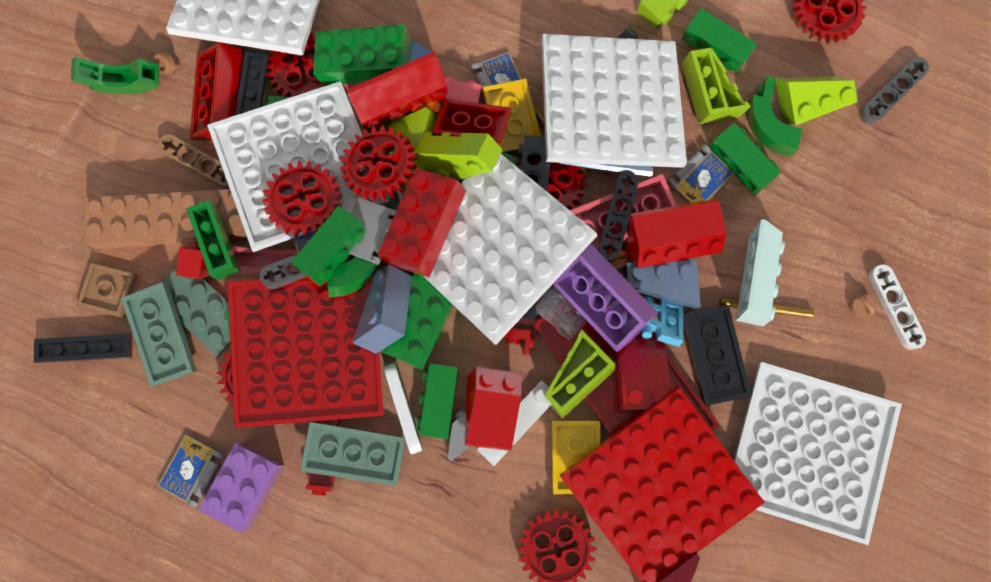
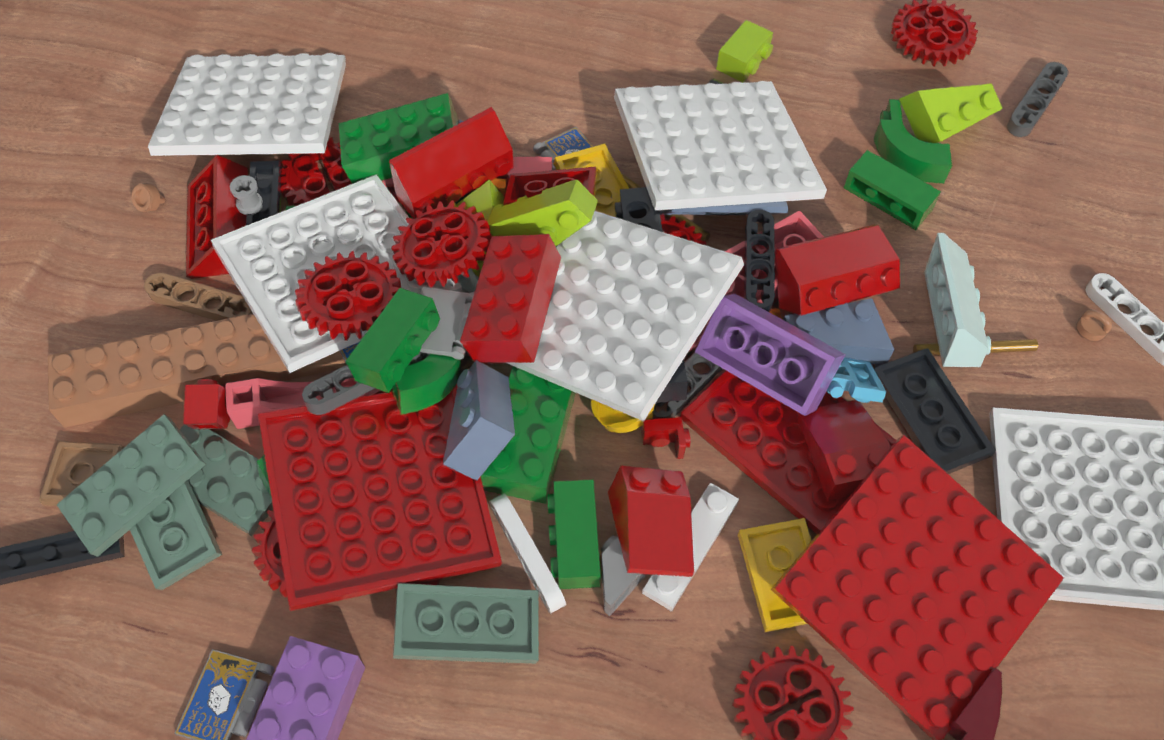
camera: 10 degrees left, 20 degrees down
(116, 79) = (86, 224): green arch -> none
(138, 312) = (130, 485): none -> sand green plate
(213, 240) = (233, 366): green brick -> none
(235, 79) = (245, 191): none -> light grey bush
(320, 484) = (424, 677): red bracket -> none
(561, 314) = (718, 389): clear bracket -> none
(579, 375) = (763, 457): lime wedge -> none
(701, 176) = (845, 212): piece -> none
(710, 88) = (828, 124): lime wedge -> none
(727, 43) = (821, 78): green brick -> none

